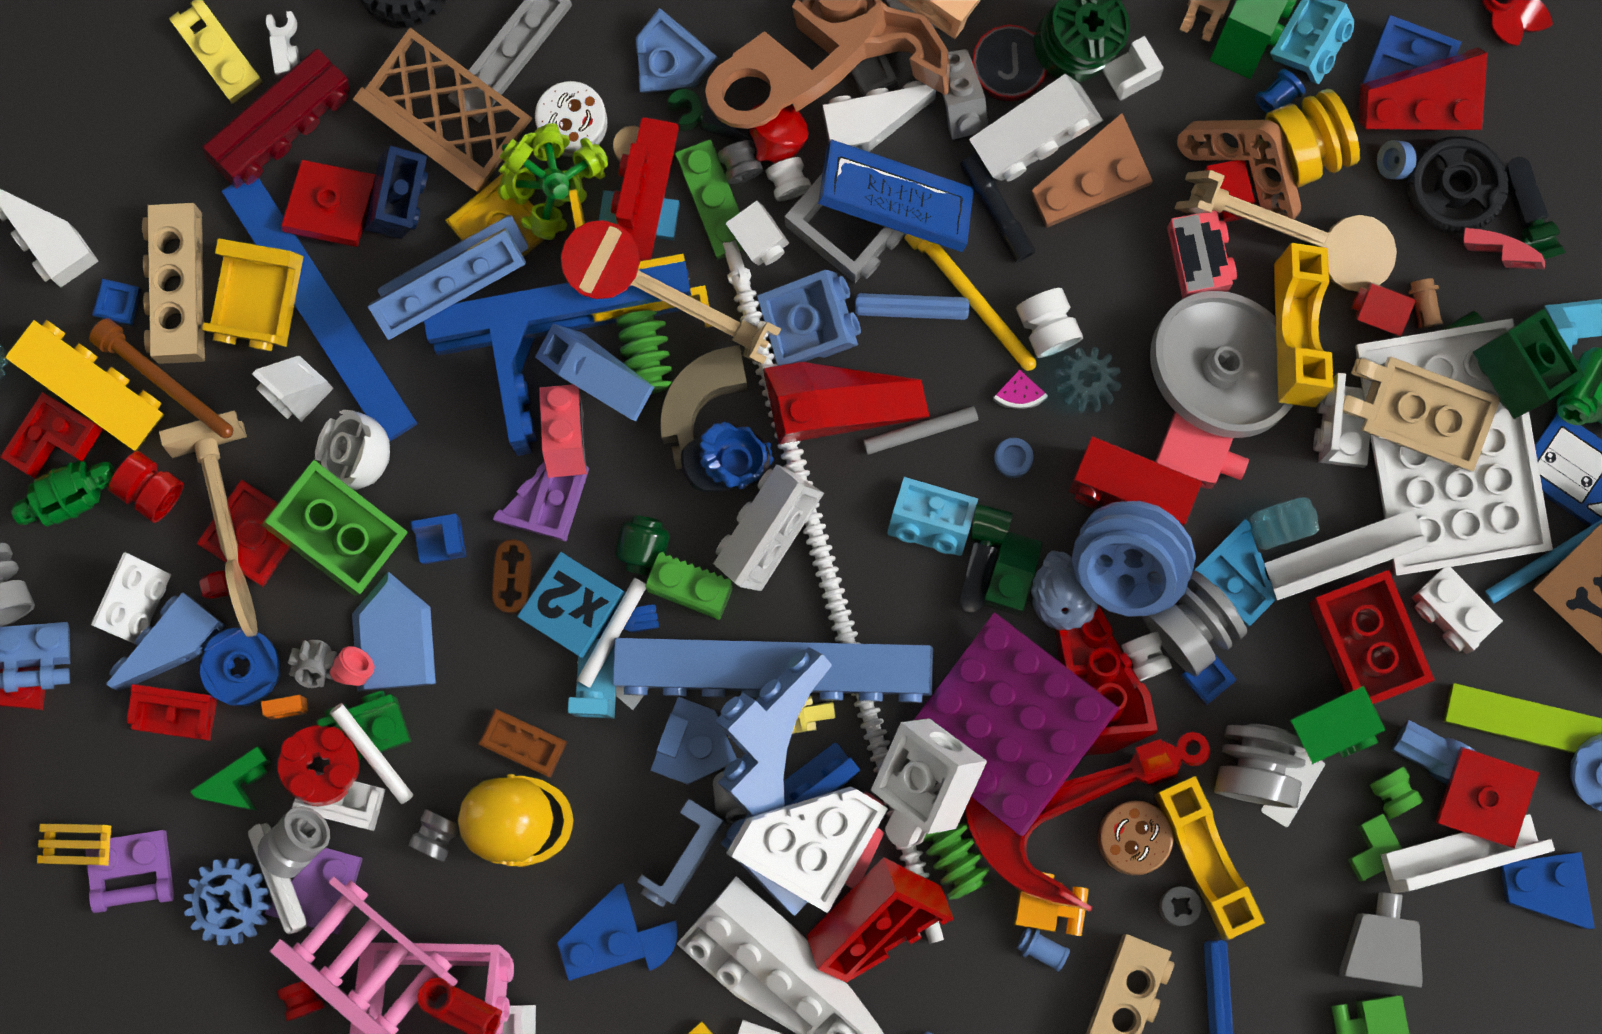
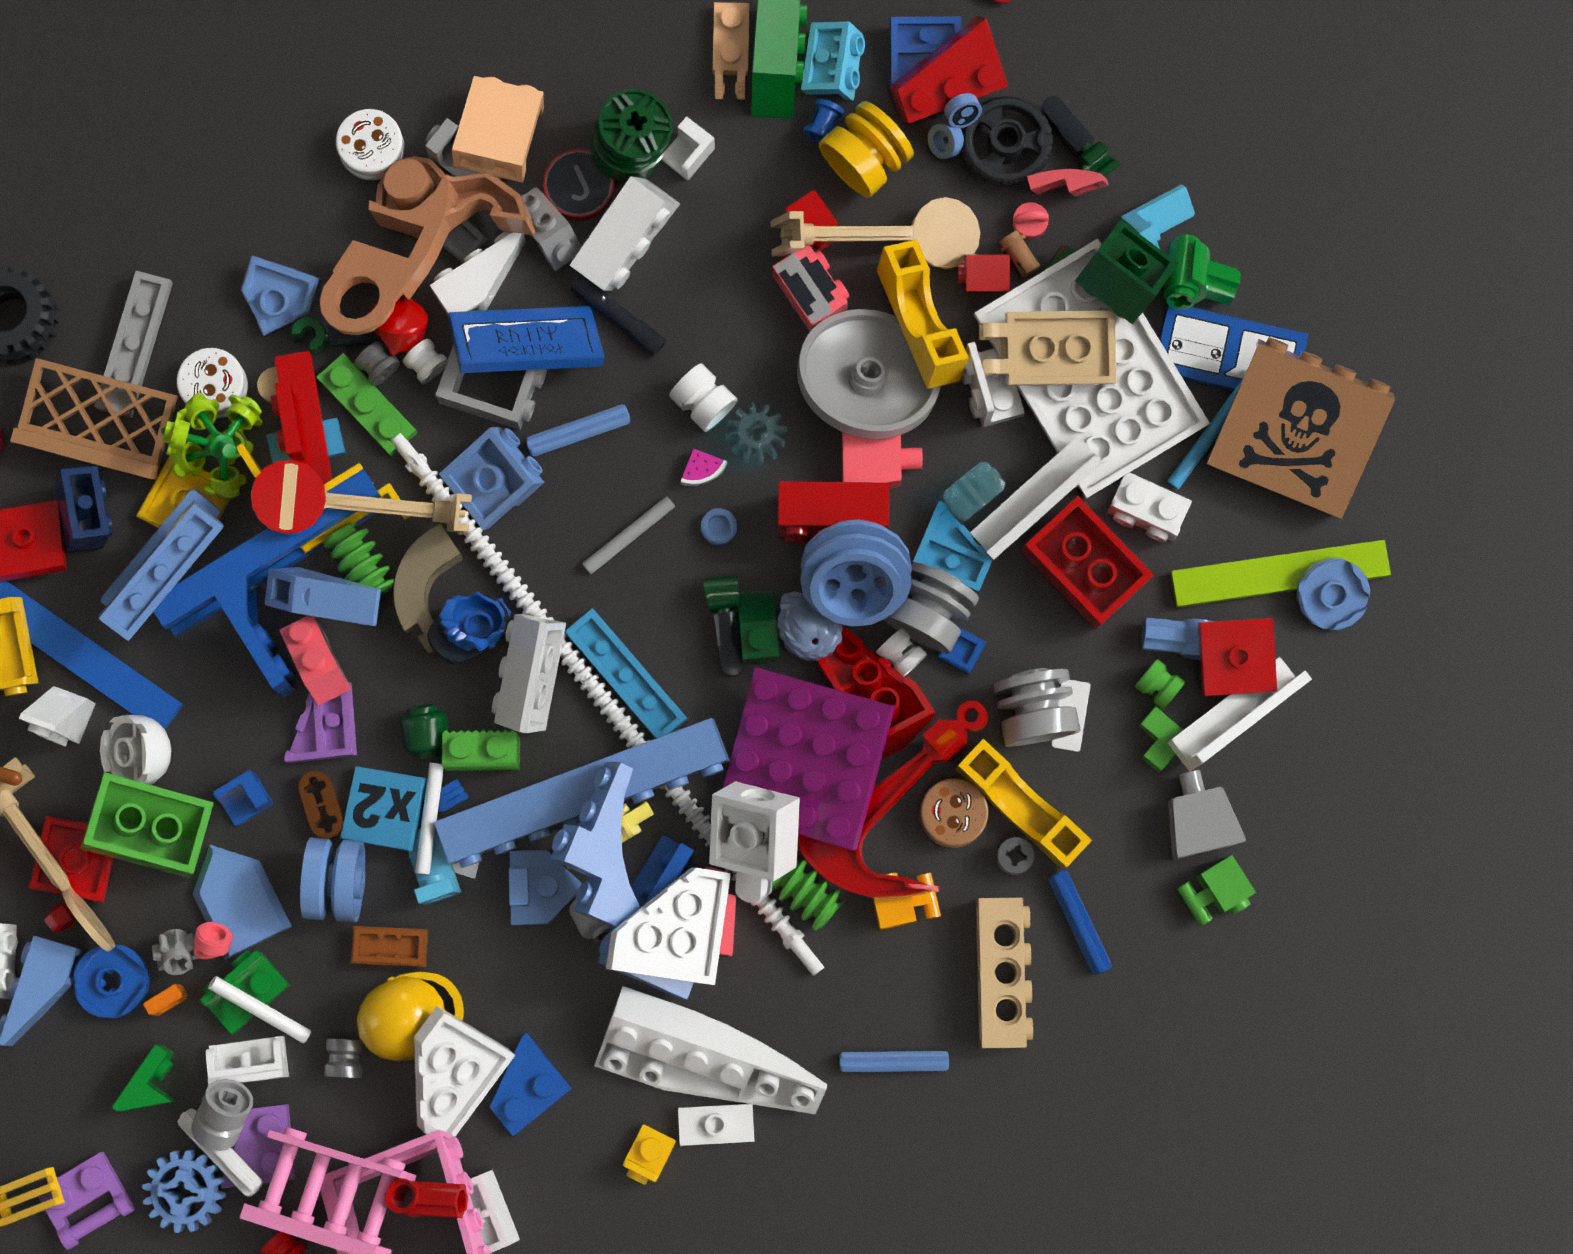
camera: 30 degrees left, 0 degrees up
(171, 712) = (66, 1045): red hinge -> none
(305, 784) = (196, 1032): red plate -> none
(493, 655) = (332, 880): none -> medium blue wheel
(536, 892) = (453, 1071): none -> white plate
(658, 943) = (578, 1071): blue tile -> none
(691, 858) = (577, 987): sand blue panel -> none
(758, 234) = (418, 420): white brick -> none
(833, 400) = (541, 539): red wedge -> none
(862, 568) = (625, 675): none -> dark azure plate
(874, 918) = (757, 972): red wedge -> none
(932, 516) = (668, 606): medium azure bracket -> none
(975, 299) = (631, 402): yellow piece -> none
(1042, 949) = (912, 940): medium blue pin -> none
(1093, 176) = (691, 254): nougat wing -> none
(1249, 148) = (817, 179): nougat beam -> none
(1339, 726) = (1088, 646): green wedge -> none
(1426, 136) = (963, 110): none -> medium blue tile
(1450, 273) = (1030, 220): none -> coral tile
(1550, 887) = (1321, 712): blue wing -> none

